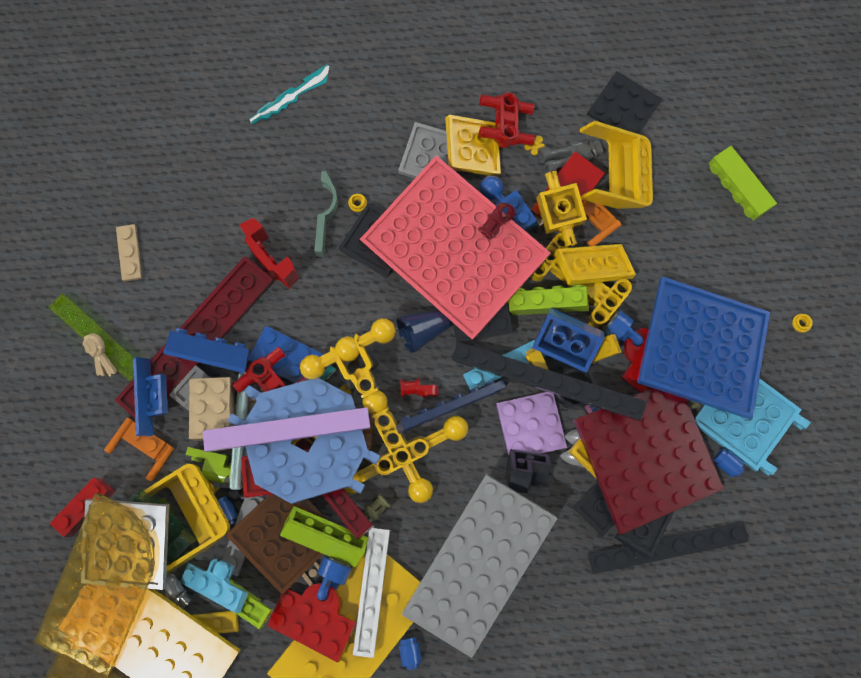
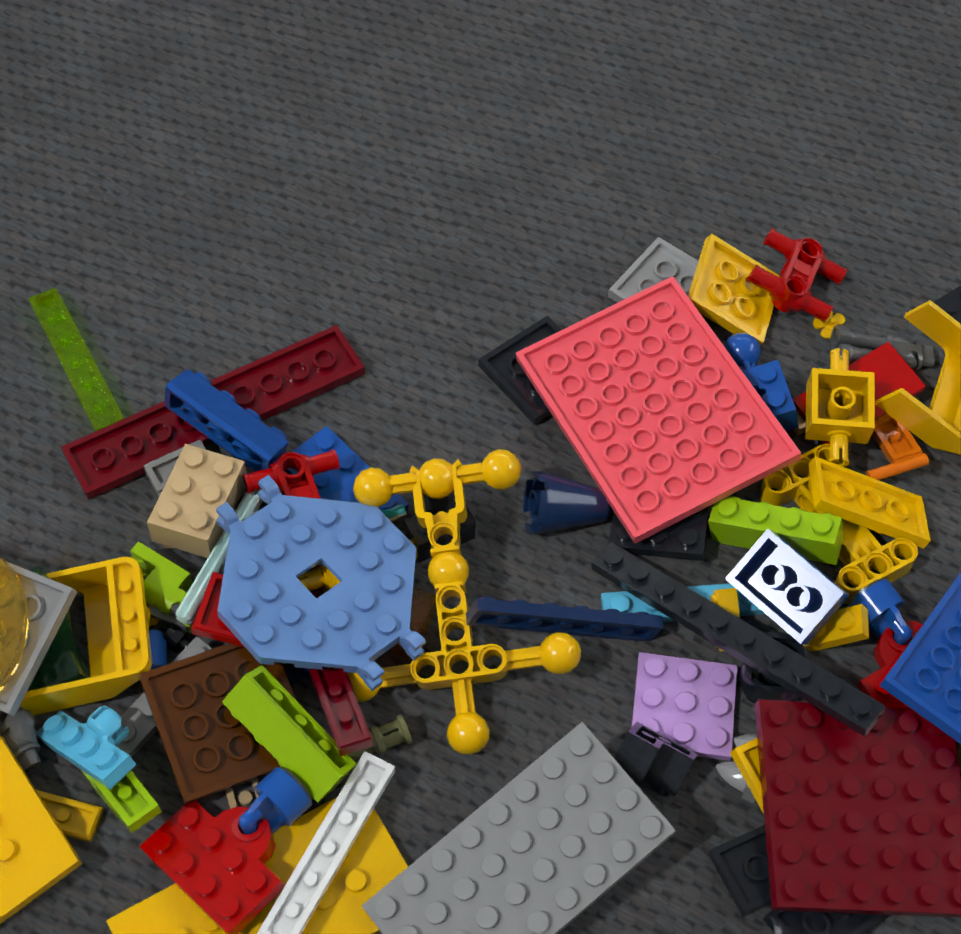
camera: 20 degrees right, 20 degrees down
(95, 347) = (67, 367): tan piece -> none
(129, 253) = (172, 272): tan plate -> none
(149, 396) = (113, 455): blue bracket -> none
(151, 446) = (76, 518): orange plate -> none
(254, 237) = (379, 355): red plate -> none
(285, 429) = (299, 551): lavender tile -> none
(291, 95) = (489, 154): teal sword -> none
(324, 217) = (475, 314): sand green piece -> none
(357, 197) = (528, 306): yellow plate -> none
(414, 387) = (520, 586): red connector -> none
(495, 220) = (731, 380): dark red connector -> none

